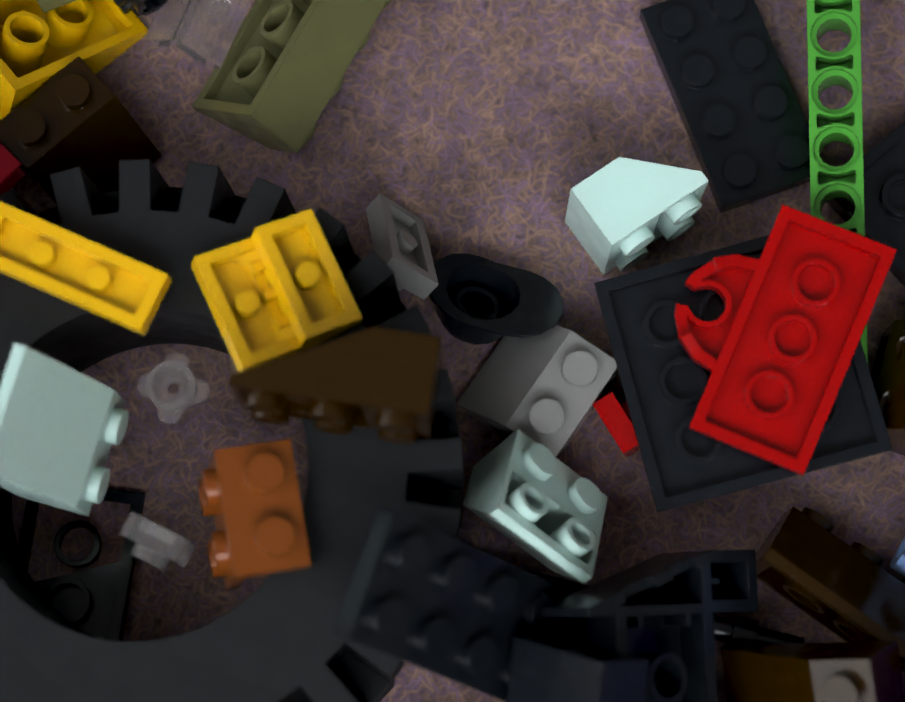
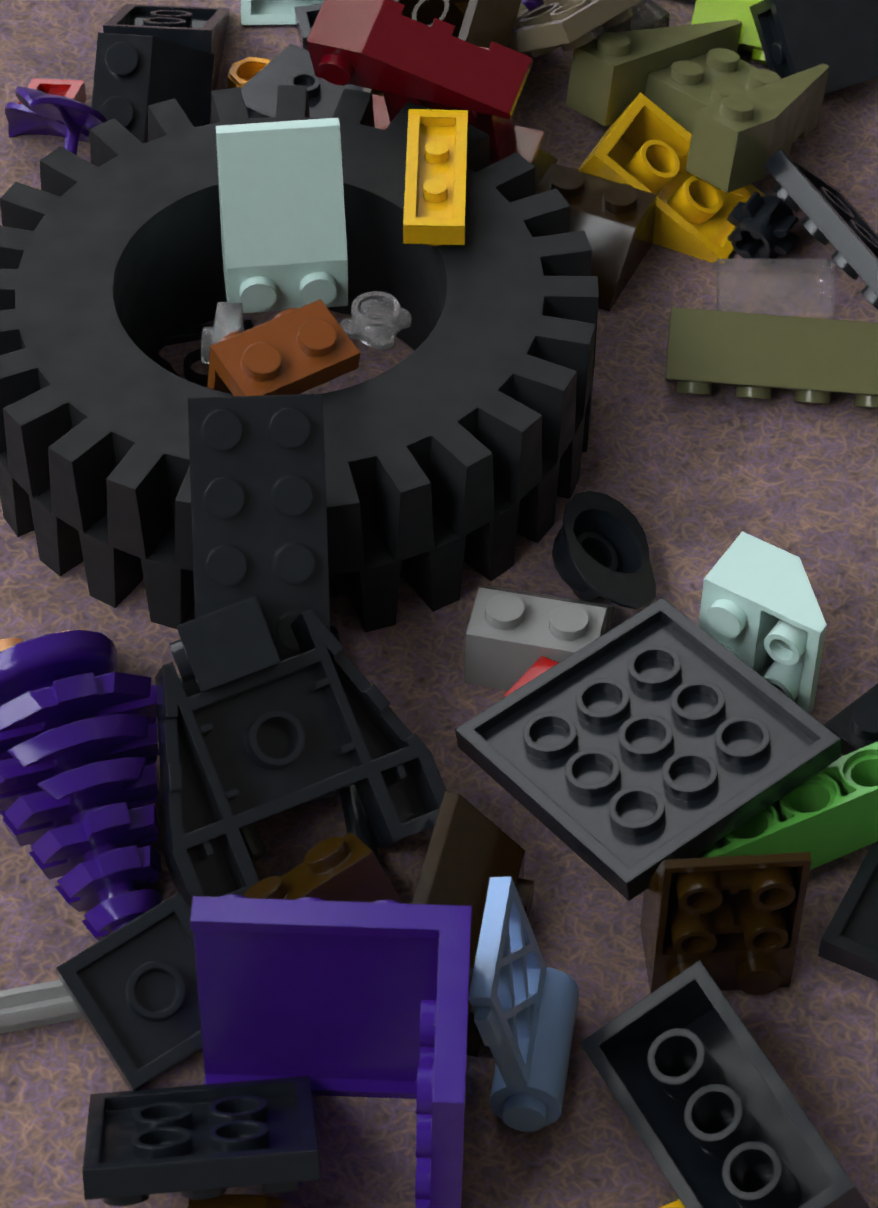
camera: 65 degrees right, 30 degrees down
(276, 291) = (493, 309): yellow slope -> none
(362, 380) = (431, 356): dark brown slope -> none
(402, 245) = (616, 465): light grey plate -> none
(539, 505) = (410, 626): light aqua slope -> none
(782, 335) = (690, 733): red plate -> none

